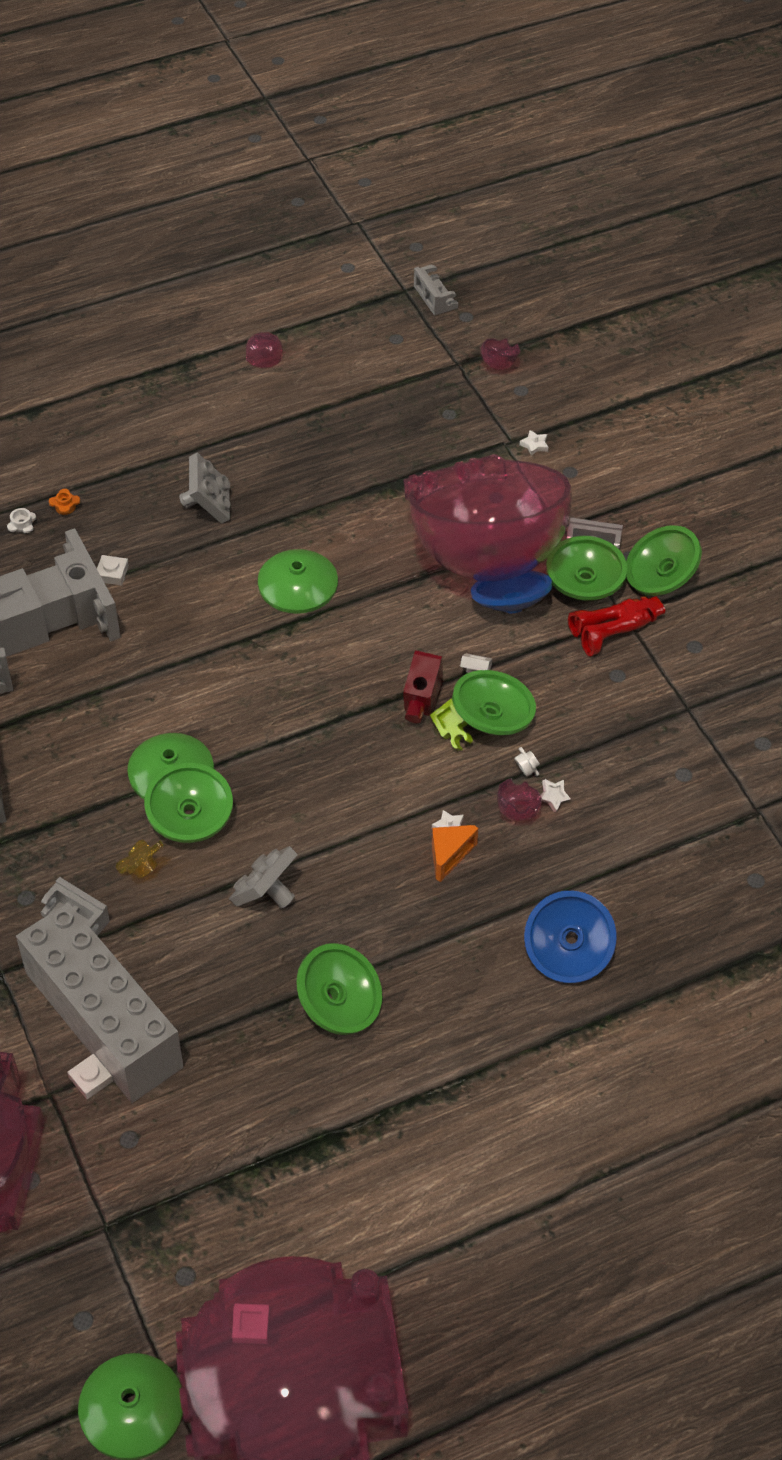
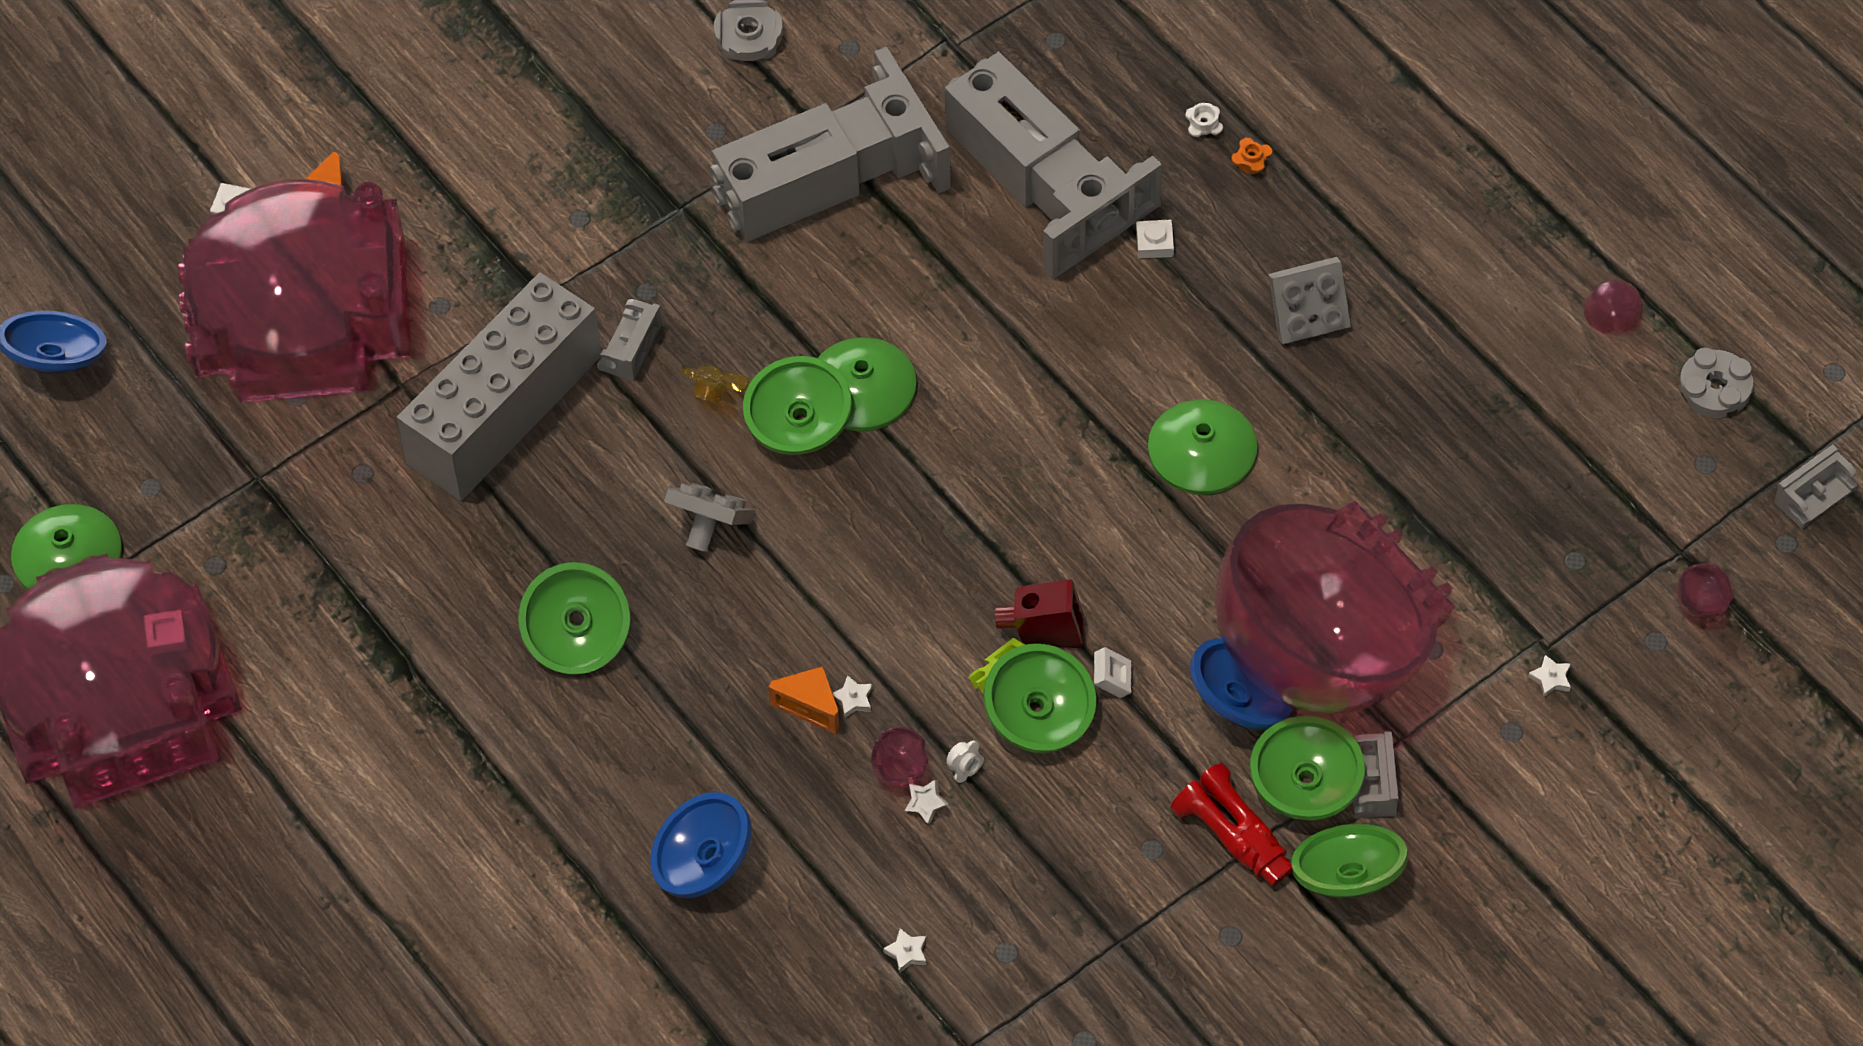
camera: 80 degrees right, 5 degrees up
(339, 307) = (1720, 365): none -> light grey plate
(673, 832) = (907, 950): none -> white piece

